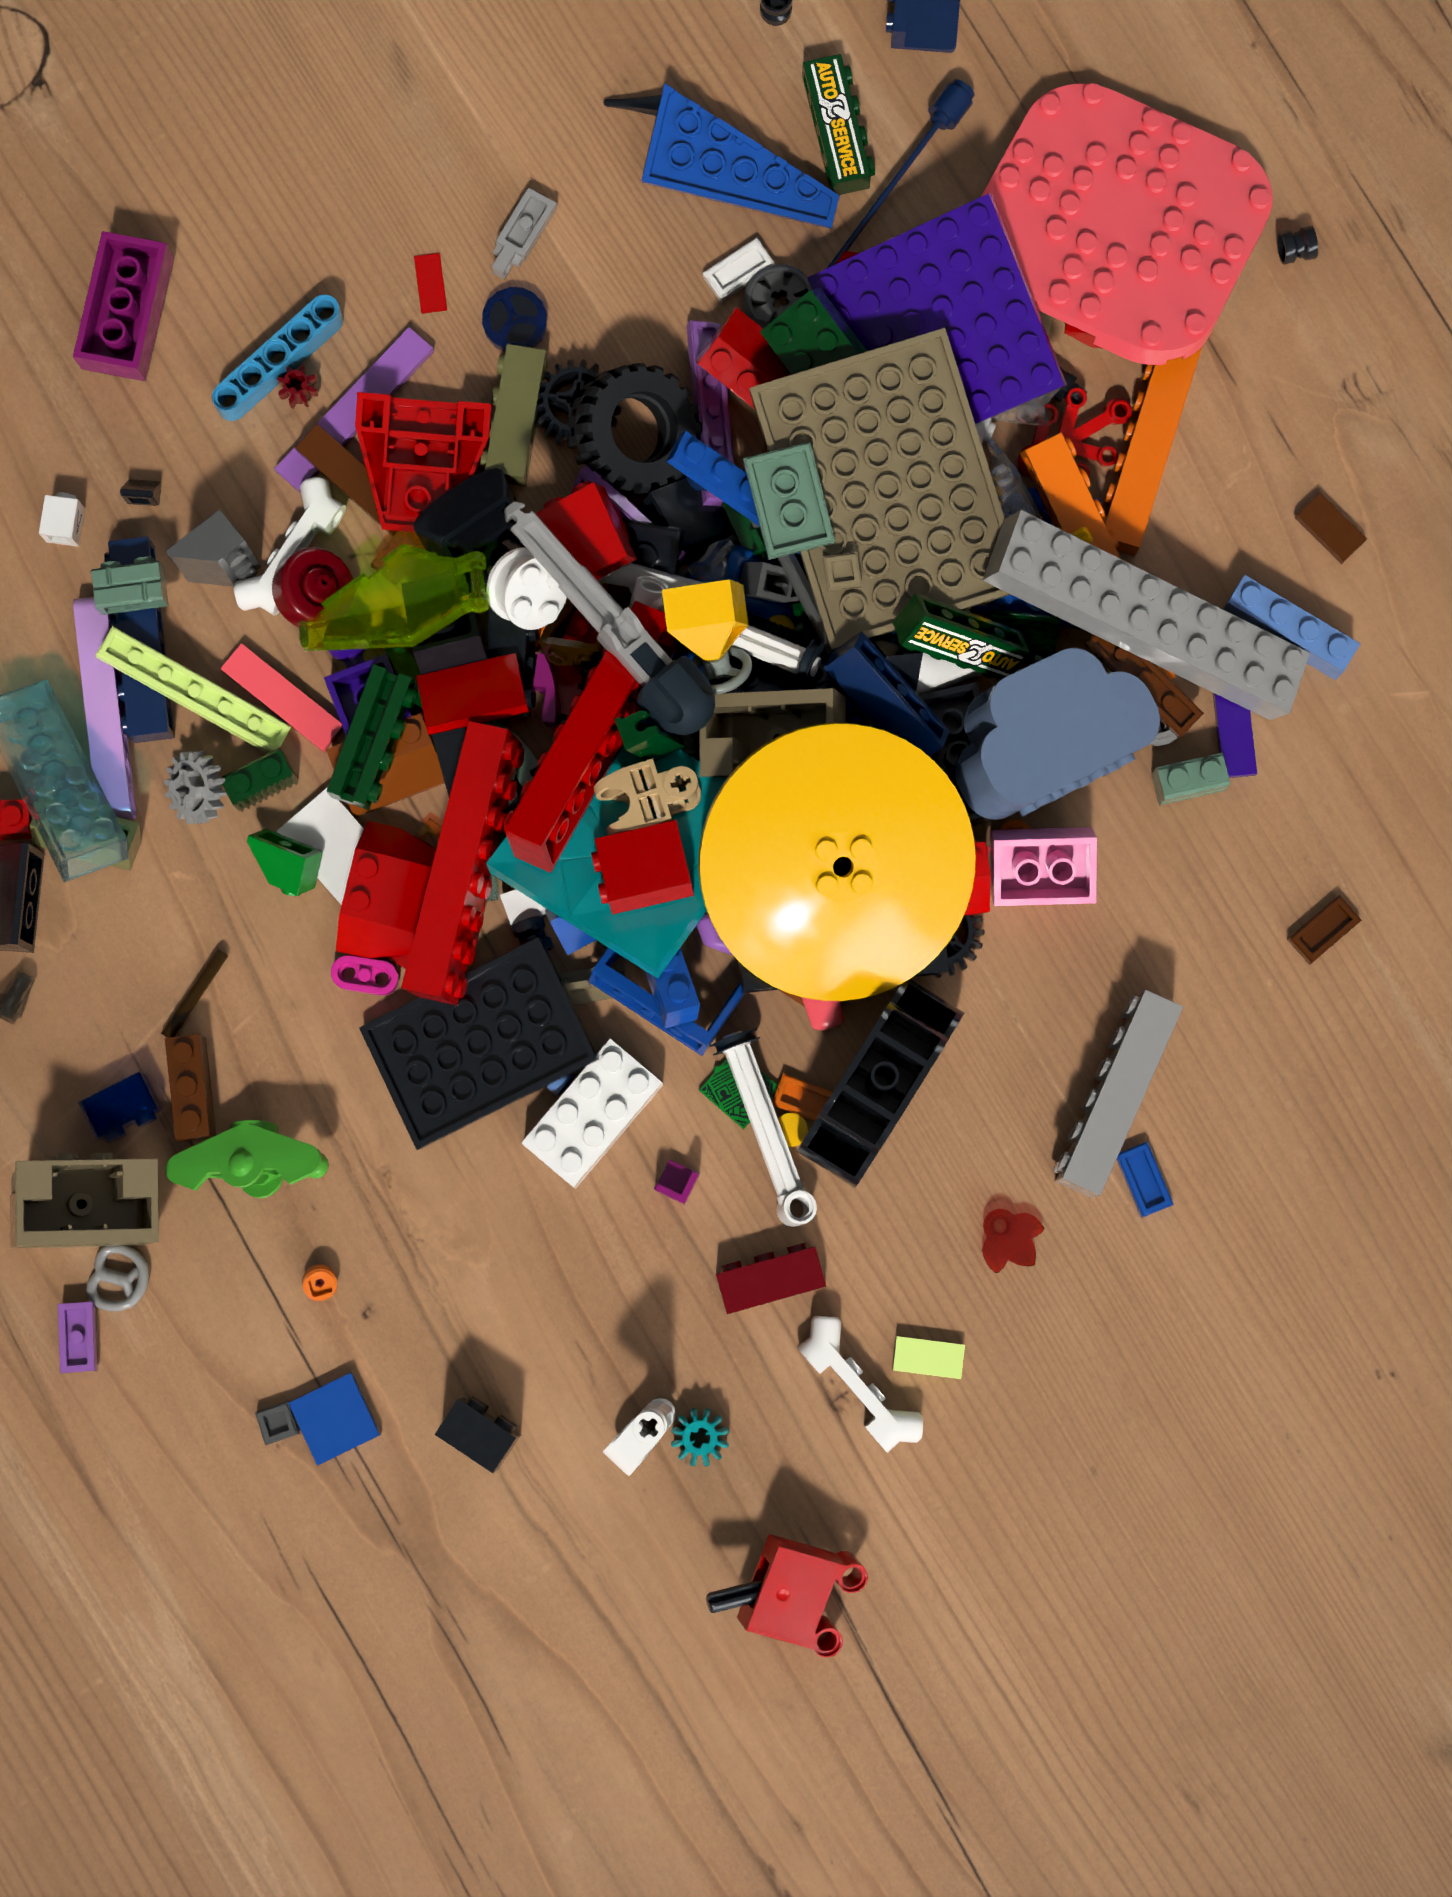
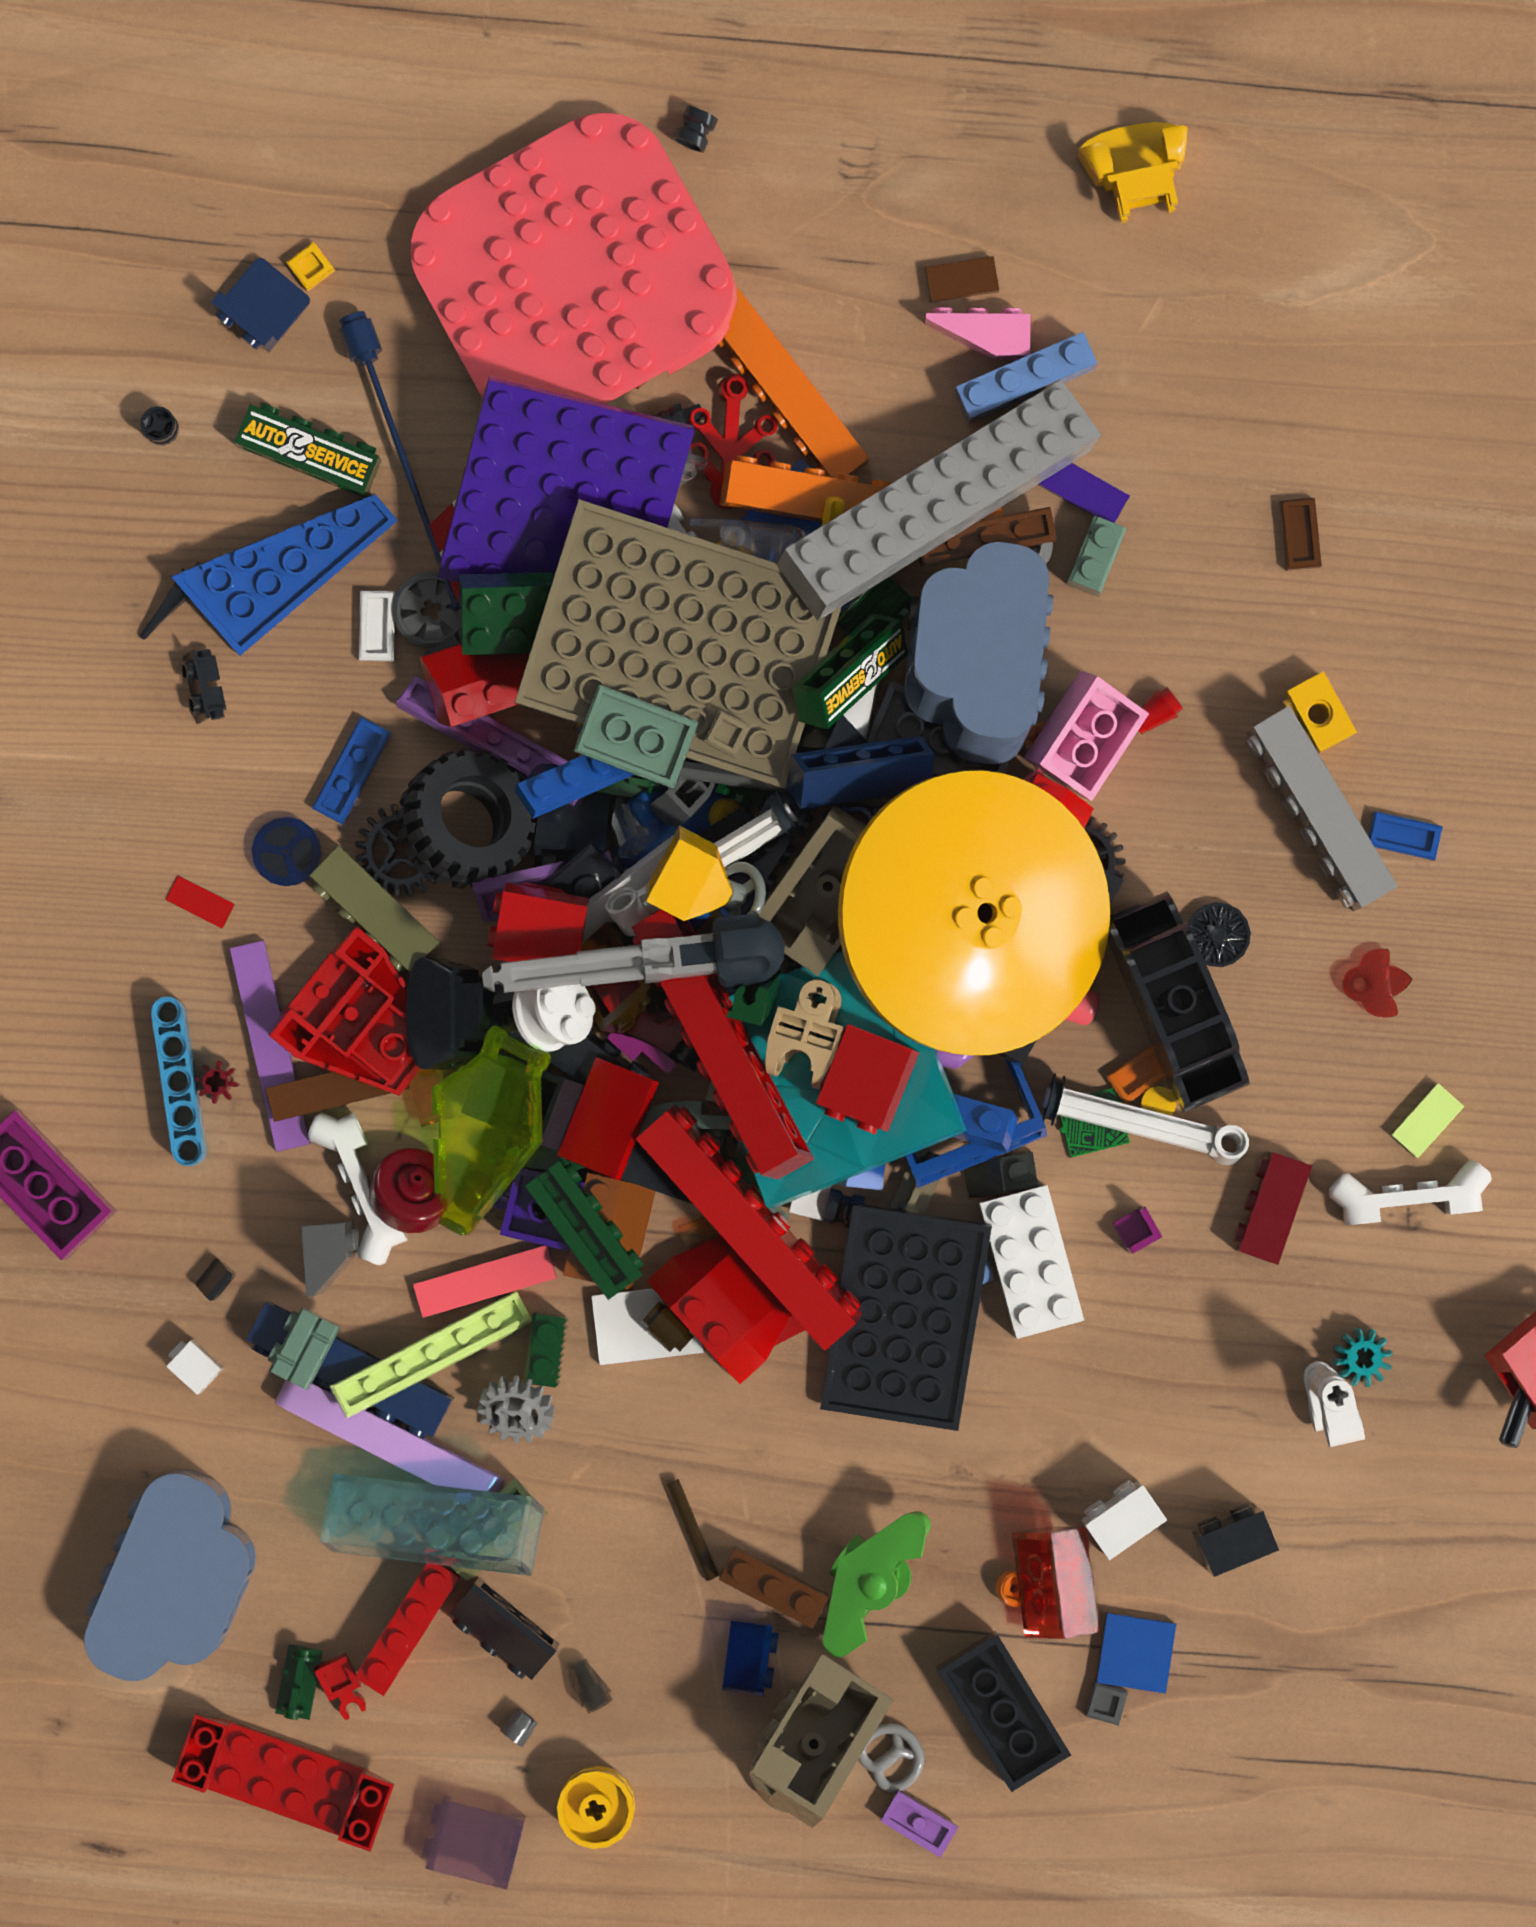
camera: 55 degrees left, 5 degrees up
(212, 1341) = (1003, 1711): none -> black brick
(286, 861) = (633, 1374): green slope -> none
(339, 860) = (666, 1328): none -> dark brown brick
(344, 1311) = (1055, 1582): none -> clear red brick
(365, 975) = (780, 1375): dark pink plate -> none
(433, 1330) = (1123, 1518): none -> white brick
(522, 231) = (212, 790): light grey hinge -> none
(607, 161) = (198, 673): none -> black hinge
(612, 326) = (351, 770): none -> blue tile
(646, 1044) = (1001, 1175): none -> pearl dark grey slope
(959, 1084) = (1220, 933): none -> black wheel
(979, 34) = (310, 266): none -> yellow tile
(1105, 913) = (1161, 708): none -> red cone
(1208, 1028) = (1319, 692): none -> yellow brick
(1302, 570) = (992, 335): none -> bright pink slope

